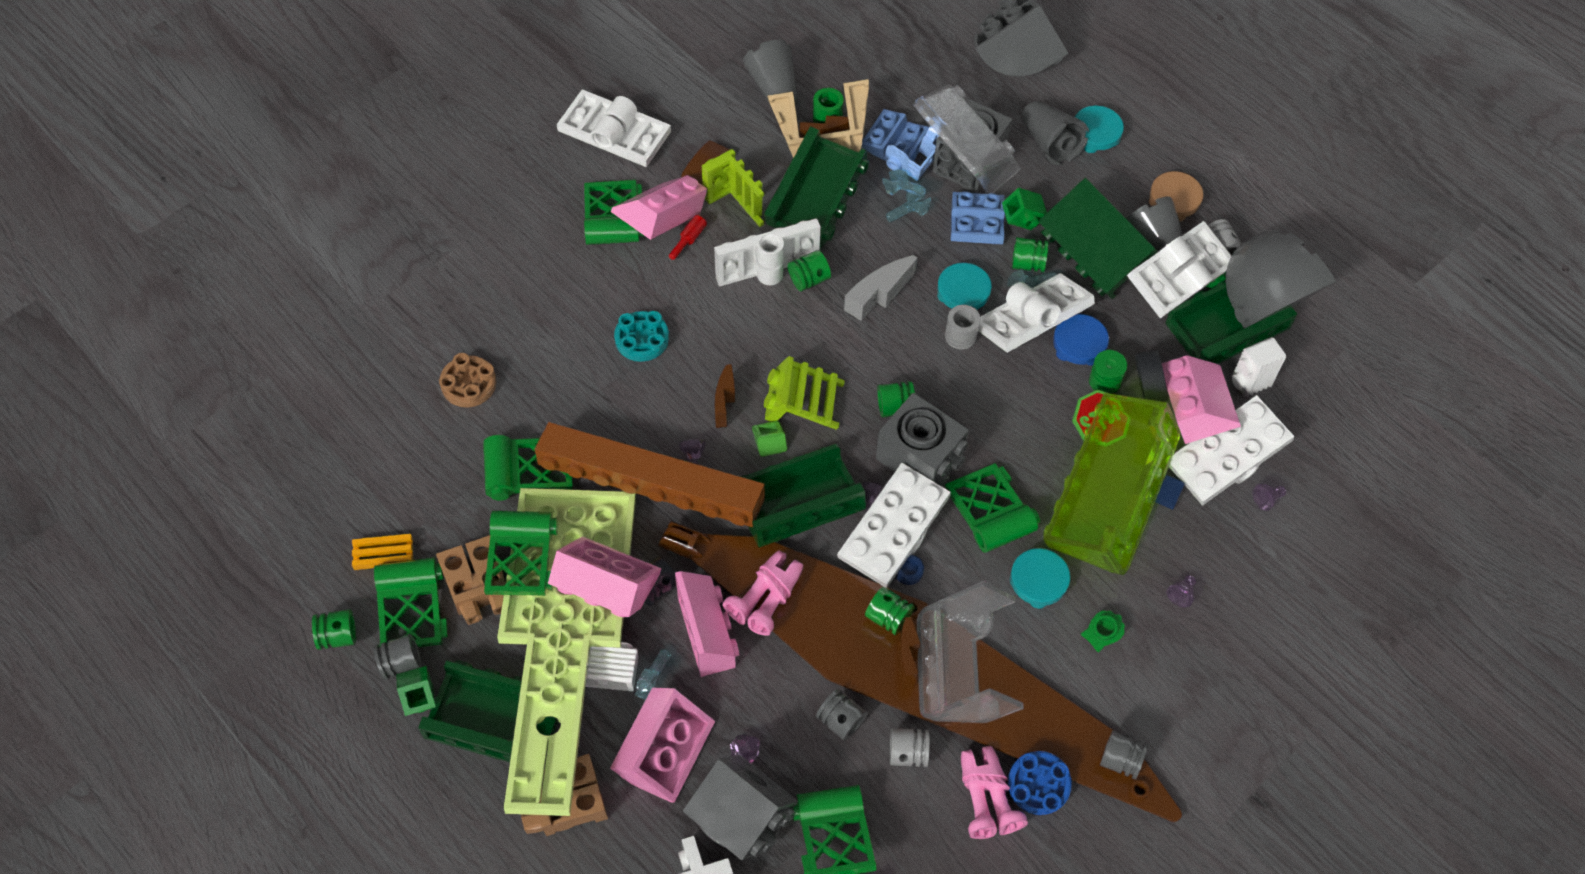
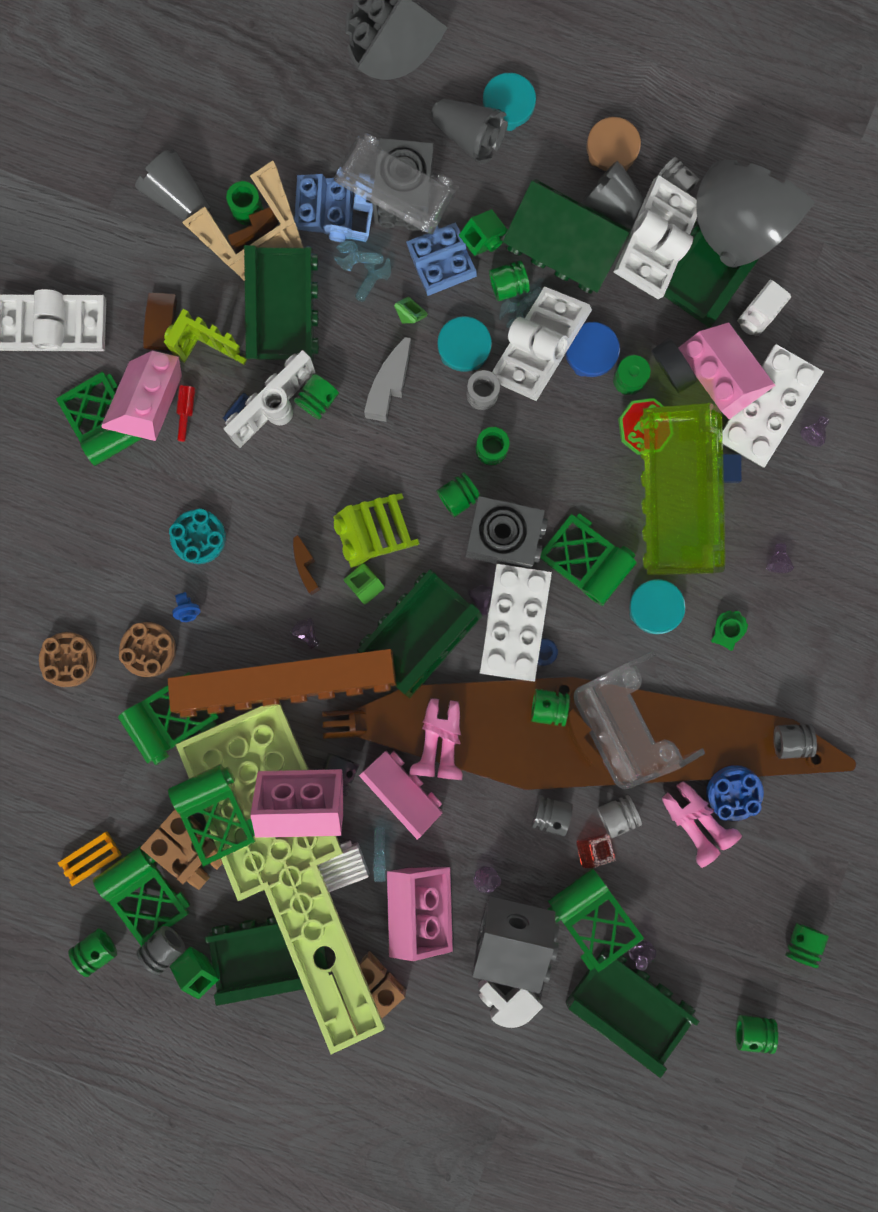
camera: 30 degrees left, 25 degrees up
(542, 402) = (147, 649): none -> medium nougat tile
(595, 384) = (186, 610): none -> blue plate
(870, 774) = (595, 851): none -> clear red slope
(927, 243) = (409, 311): none -> bright green slope
(948, 374) = (492, 446): none -> green piece

